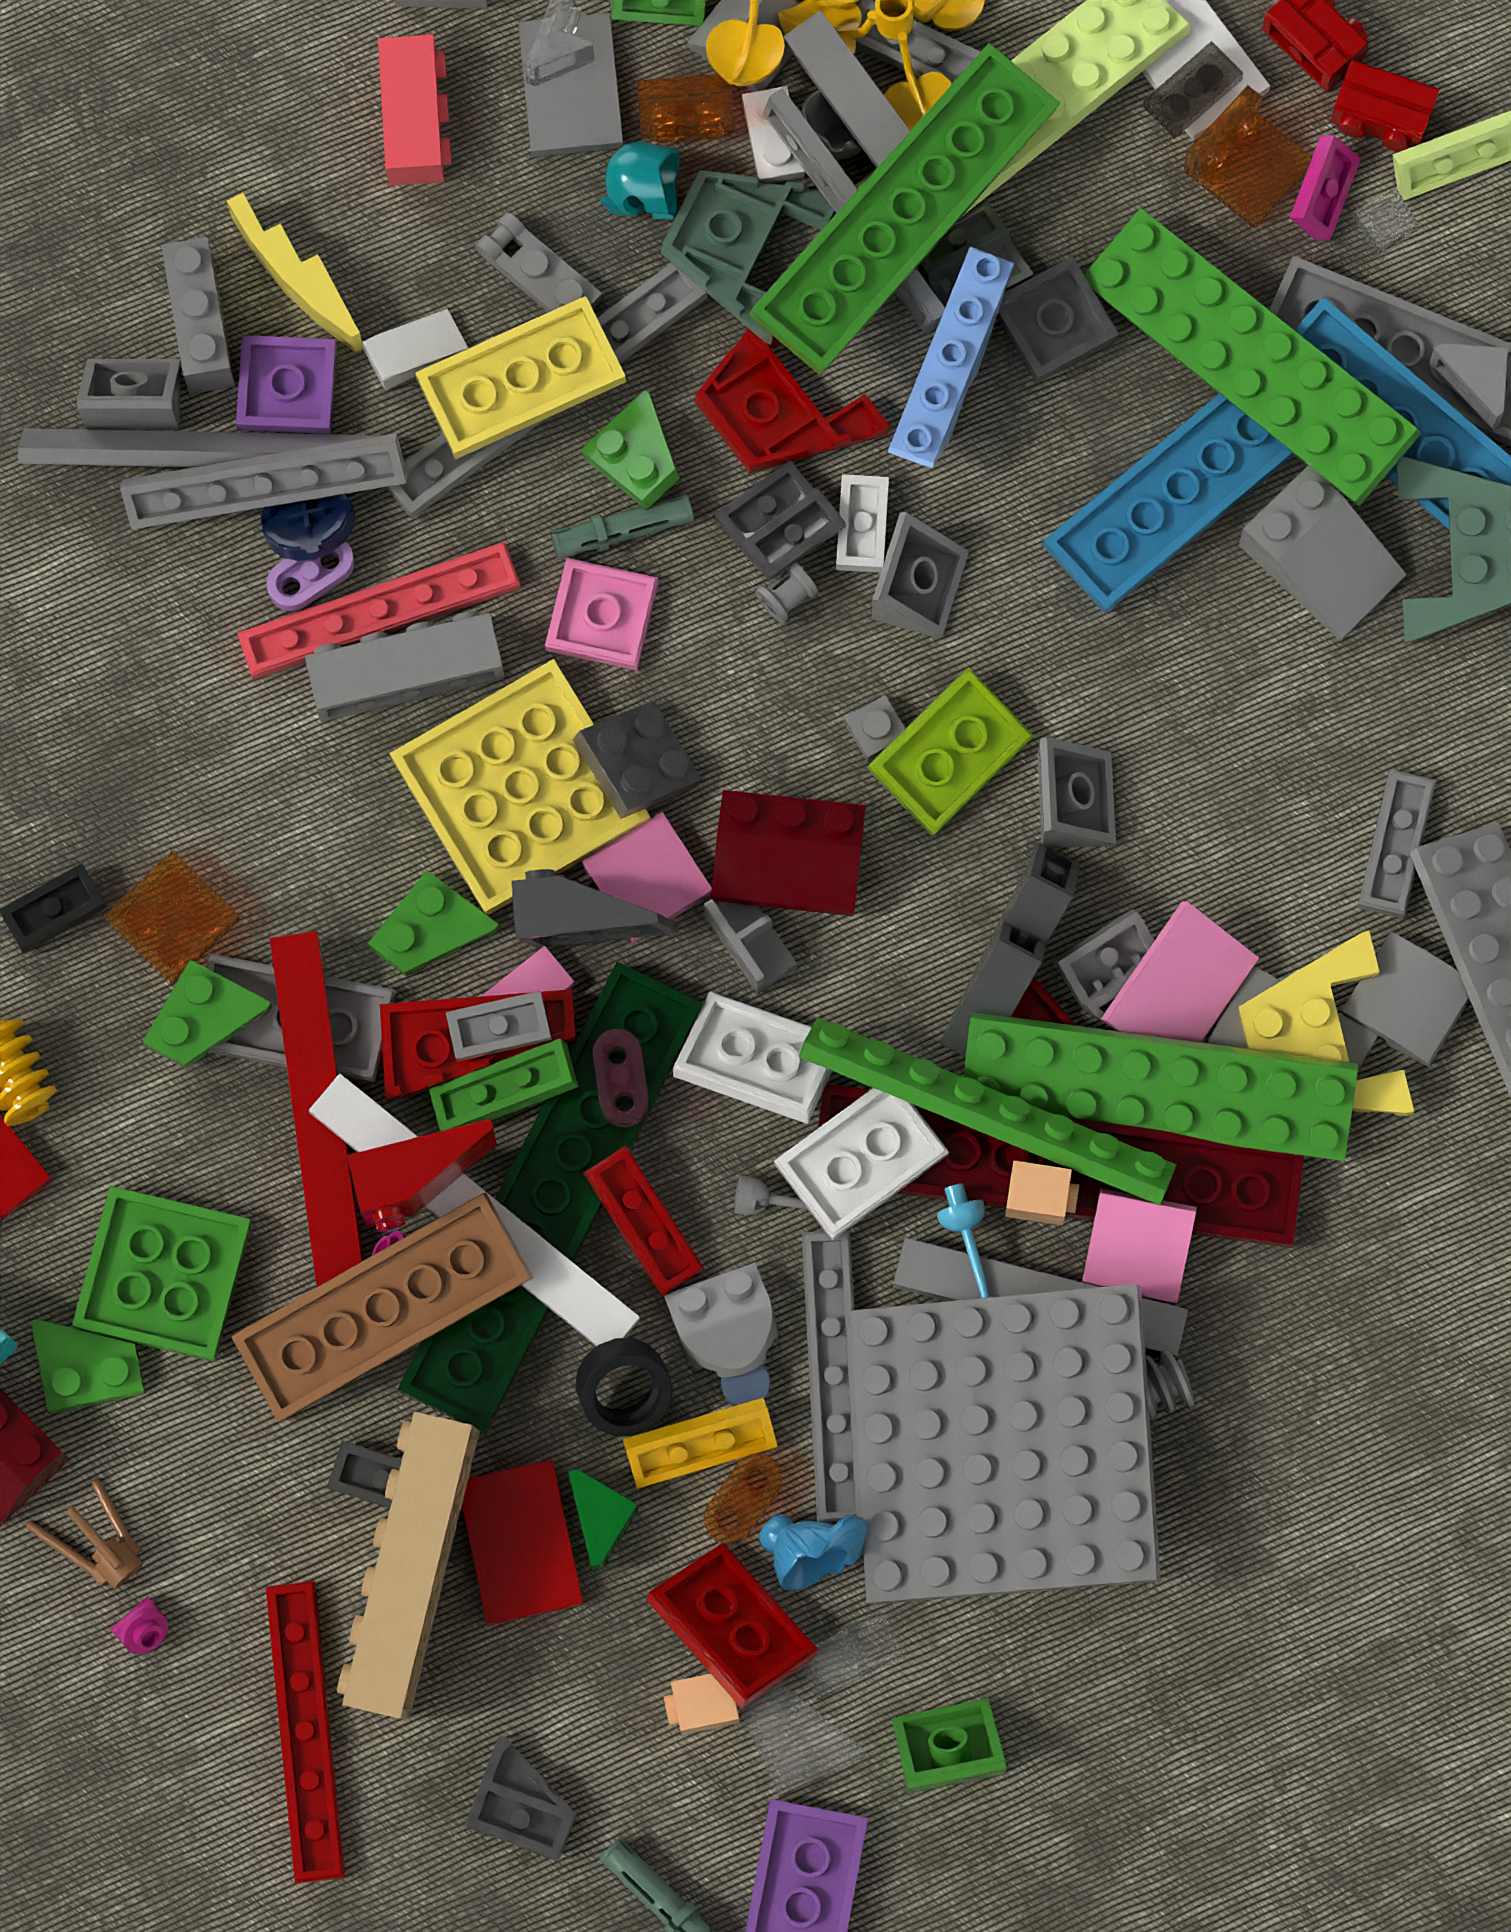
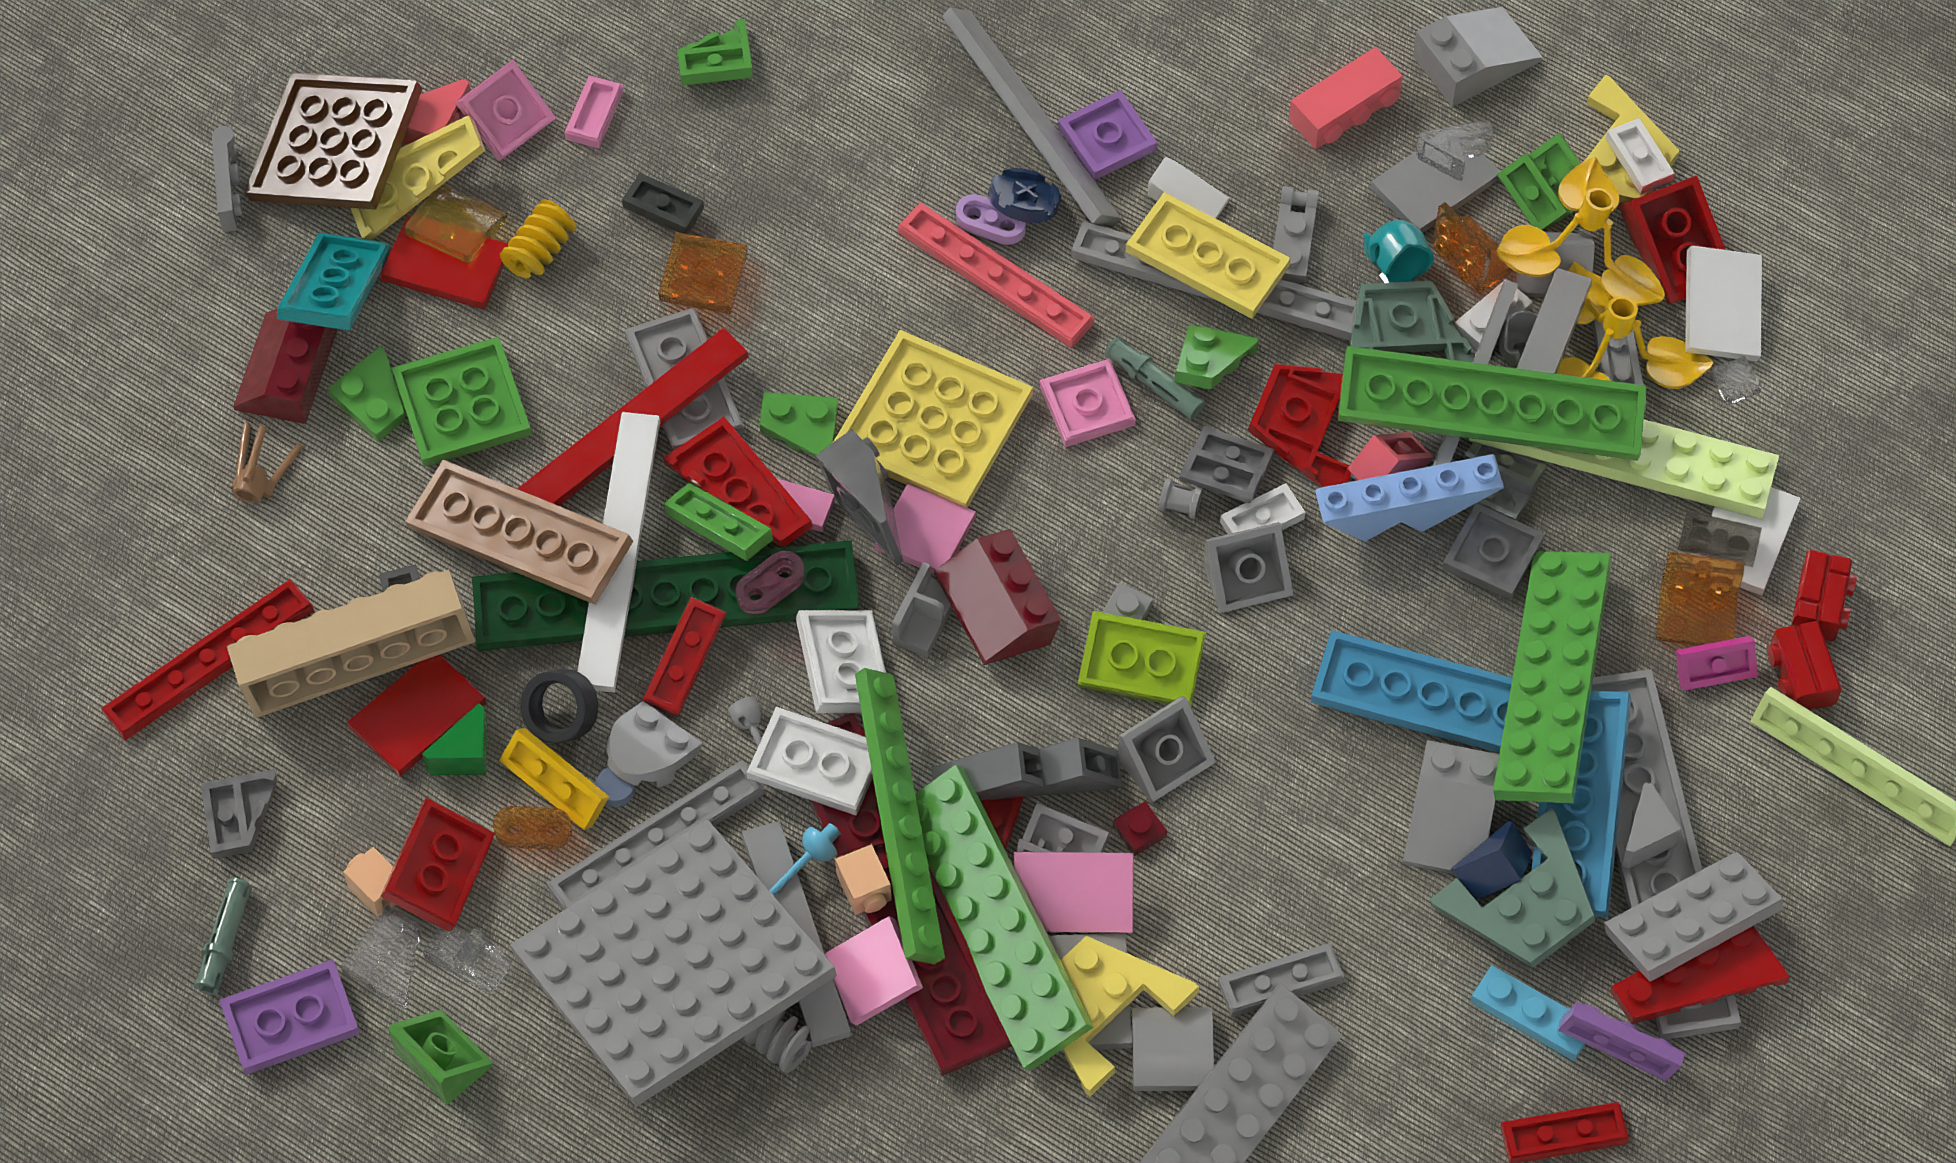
camera: 55 degrees right, 15 degrees down
(130, 394) = (1035, 53): light grey slope -> none
(141, 1628) = (217, 524): dark pink plate -> none
(198, 315) = (1115, 57): light grey brick -> none
(201, 1014) = (647, 323): bright green wing -> none
(264, 481) = (1029, 153): light grey plate -> none
(303, 281) = (1185, 99): light yellow slope -> none
(404, 666) = (966, 306): light grey brick -> none
(409, 1174) = (614, 484): red slope -> none
(498, 1026) = (753, 487): light grey plate -> none
(637, 759) = (999, 473): flat silver plate -> none
(811, 1548) = (521, 887): dark azure hair -> none
(886, 357) = (1390, 455): none -> coral slope
(1138, 876) = (1139, 828): none -> dark red plate
(1385, 220) = (1724, 715): clear plate -> none
(1410, 551) = (1494, 862): none -> dark blue slope

